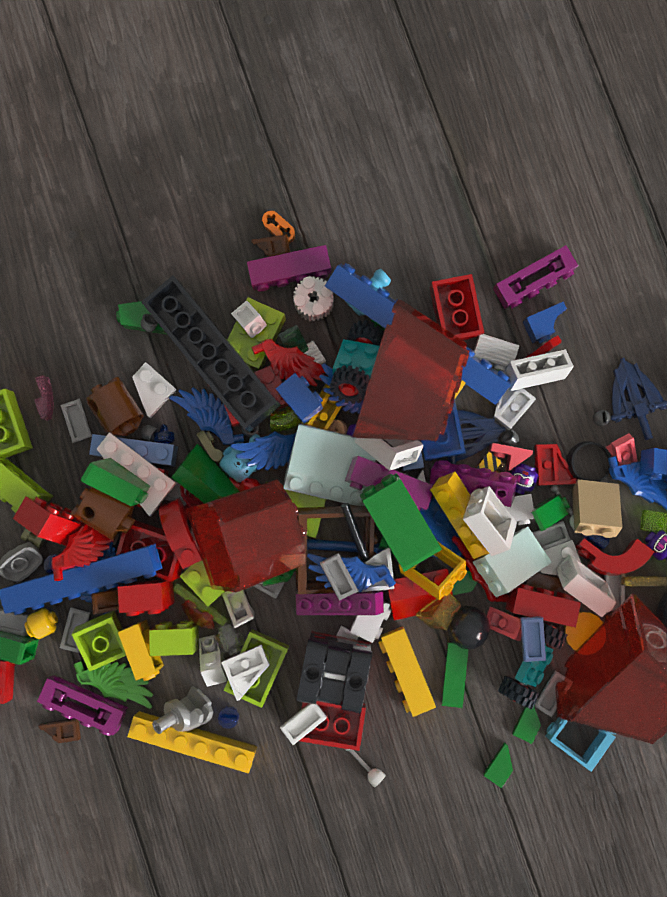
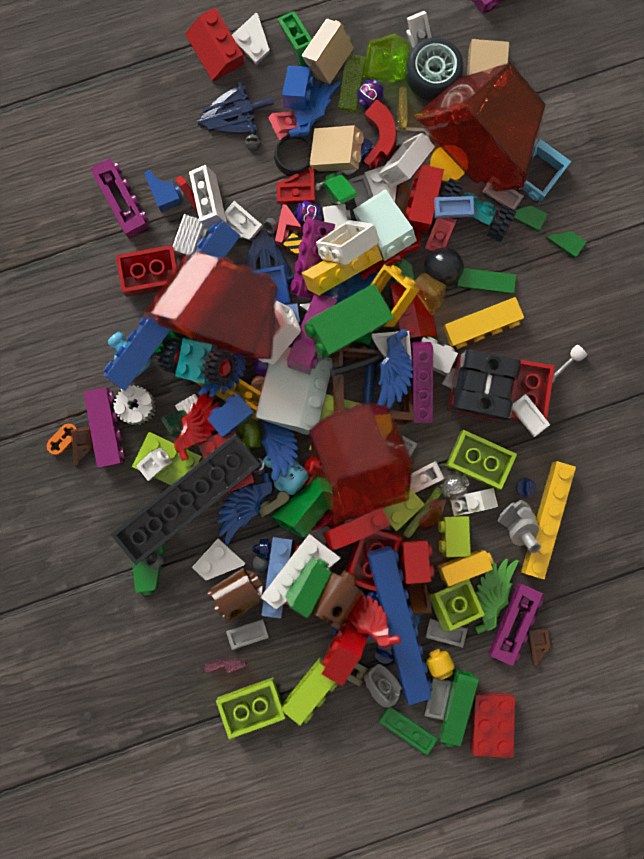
camera: 95 degrees left, 0 degrees up
(245, 669) = (482, 468): white wing -> none
(338, 576) = (398, 379): light grey tile -> none

